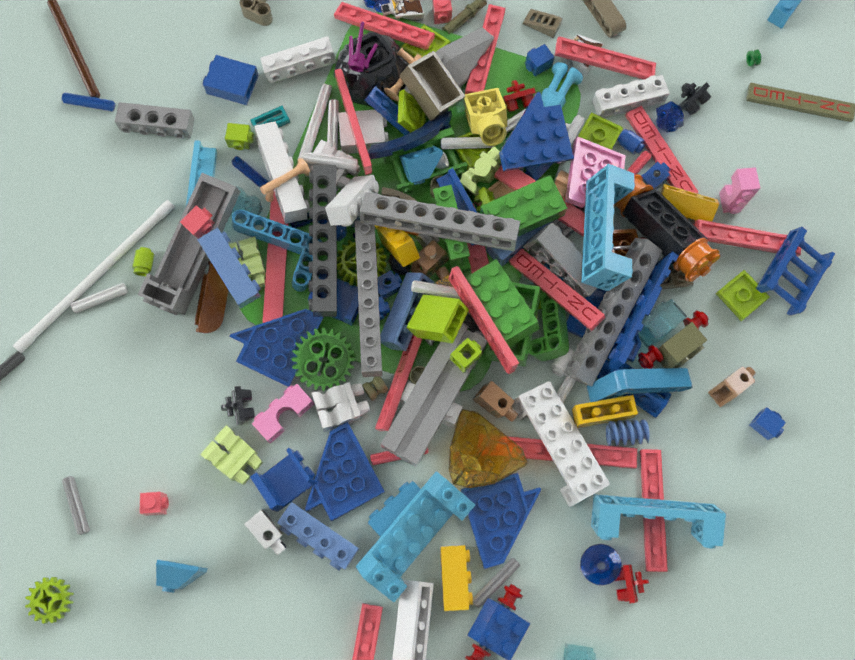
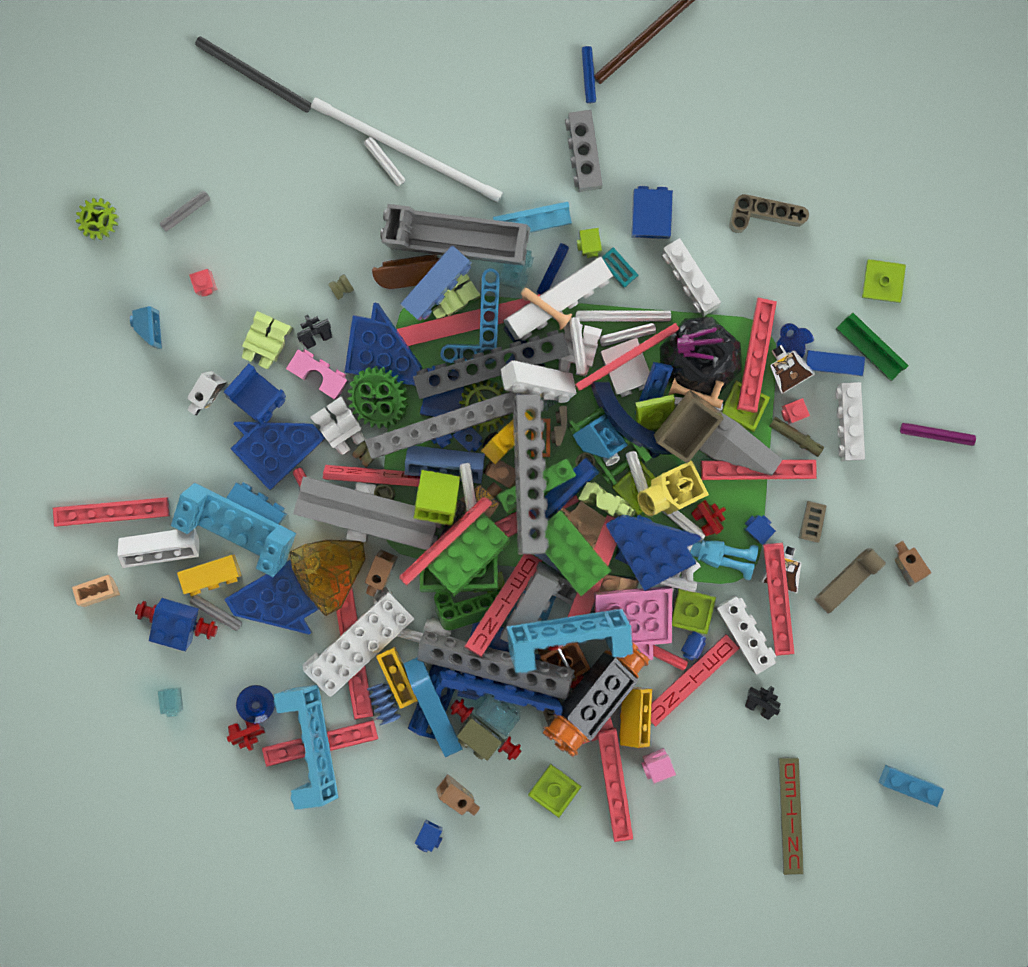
camera: 85 degrees right, 15 degrees up
(143, 261) = (431, 191): lime brick -> none
(198, 221) = (473, 238): coral brick -> none
(204, 368) = (343, 285): none -> olive wheel
(318, 536) = (213, 441): medium blue brick -> none
(466, 346) = (398, 530): lime brick -> none
(485, 196) = (579, 514): lime tile -> none
(656, 182) = (653, 674): blue brick -> none
(669, 117) = (730, 680): clear blue brick -> none
(753, 57) = (829, 757): green bush -> none
(779, 267) = (591, 820): blue fence -> none

